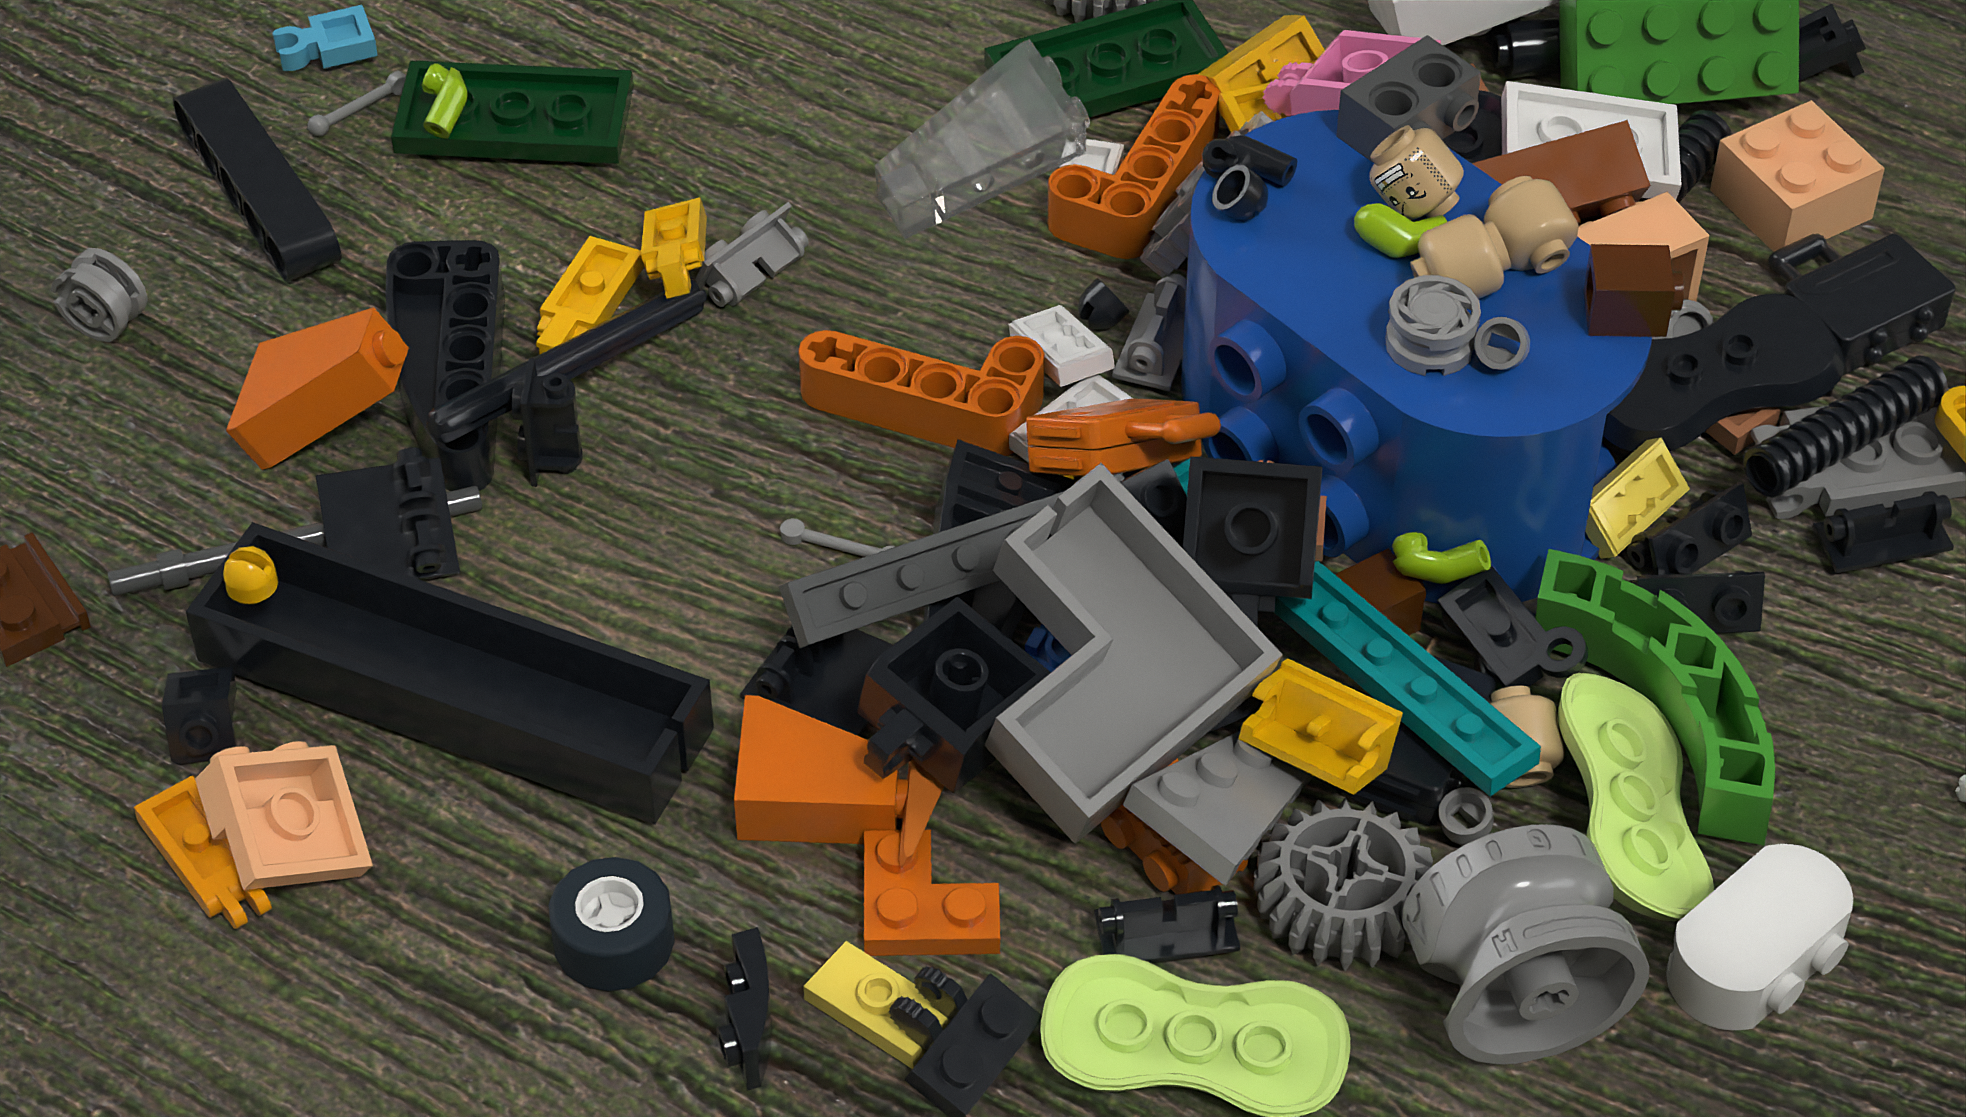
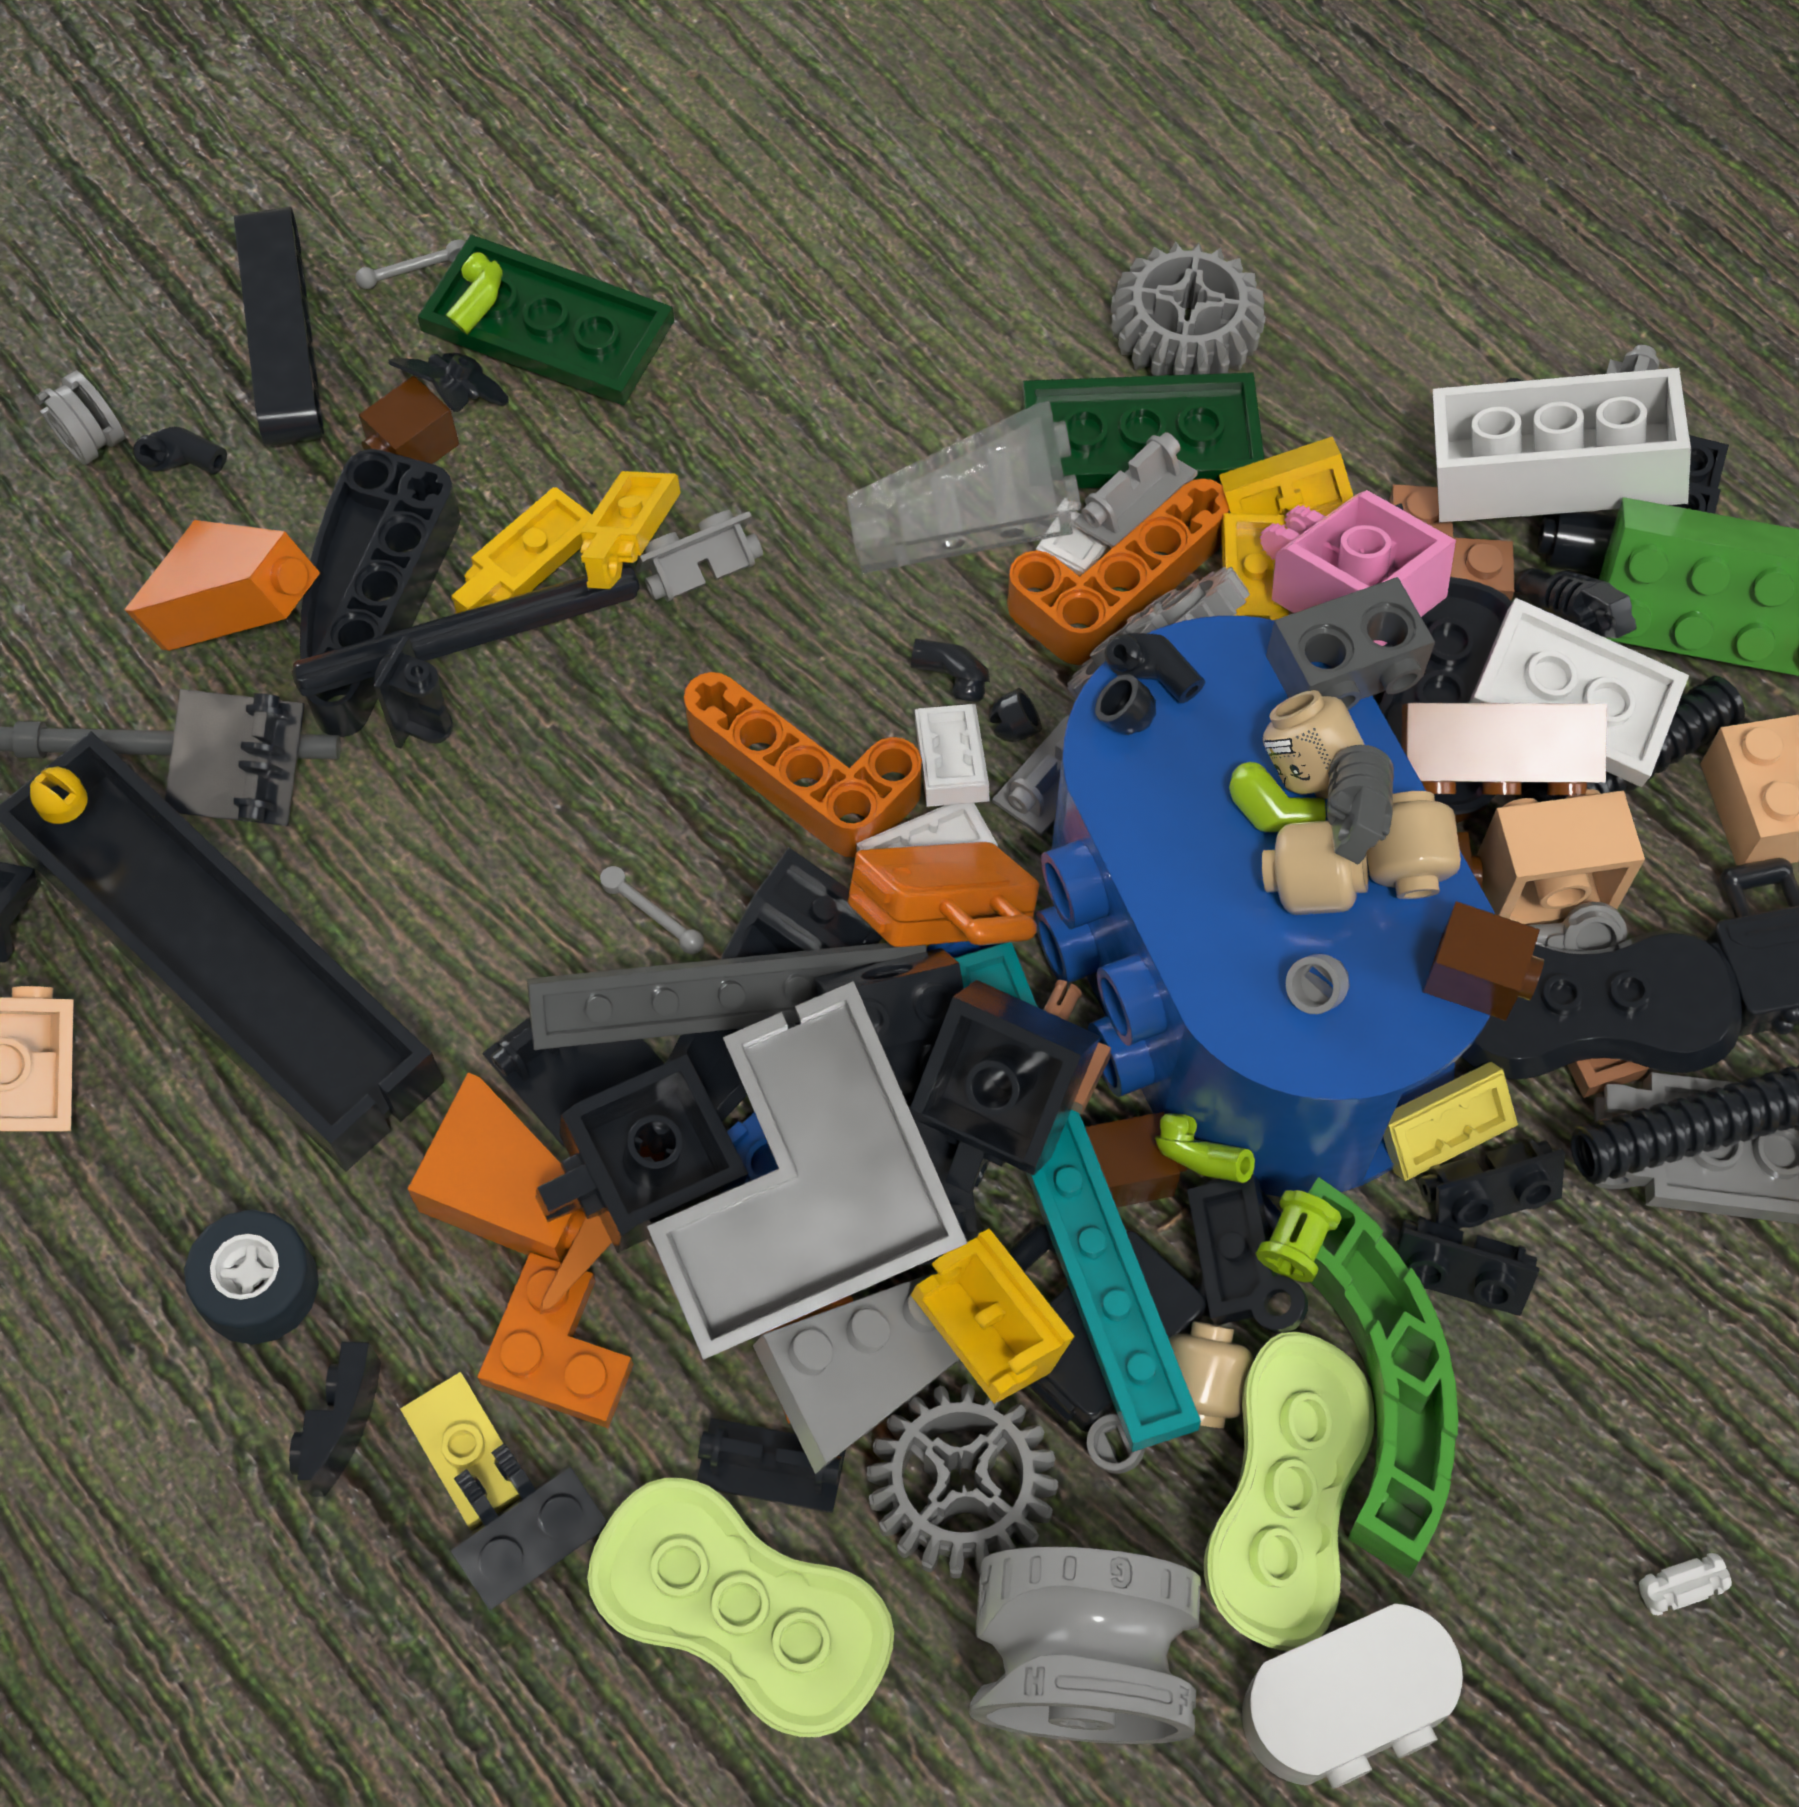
camera: 20 degrees right, 15 degrees up
(202, 301) = (178, 447): none -> black arm
(332, 36) = (416, 186): medium azure plate -> none
(426, 214) = (410, 423): none -> reddish brown brick
(457, 171) = (454, 378): none -> black piece
(1026, 278) = (952, 660): none -> black arm
(1130, 100) = (1136, 493): none -> light grey hinge
(1432, 325) = (1253, 936): light grey wheel -> none
(1481, 188) = (1359, 800): none -> dark grey hinge
(1559, 586) = (1298, 1235): none -> lime bush
(1574, 70) = (1578, 600): none -> black hinge
(1883, 535) = (1698, 1250): black hinge -> none

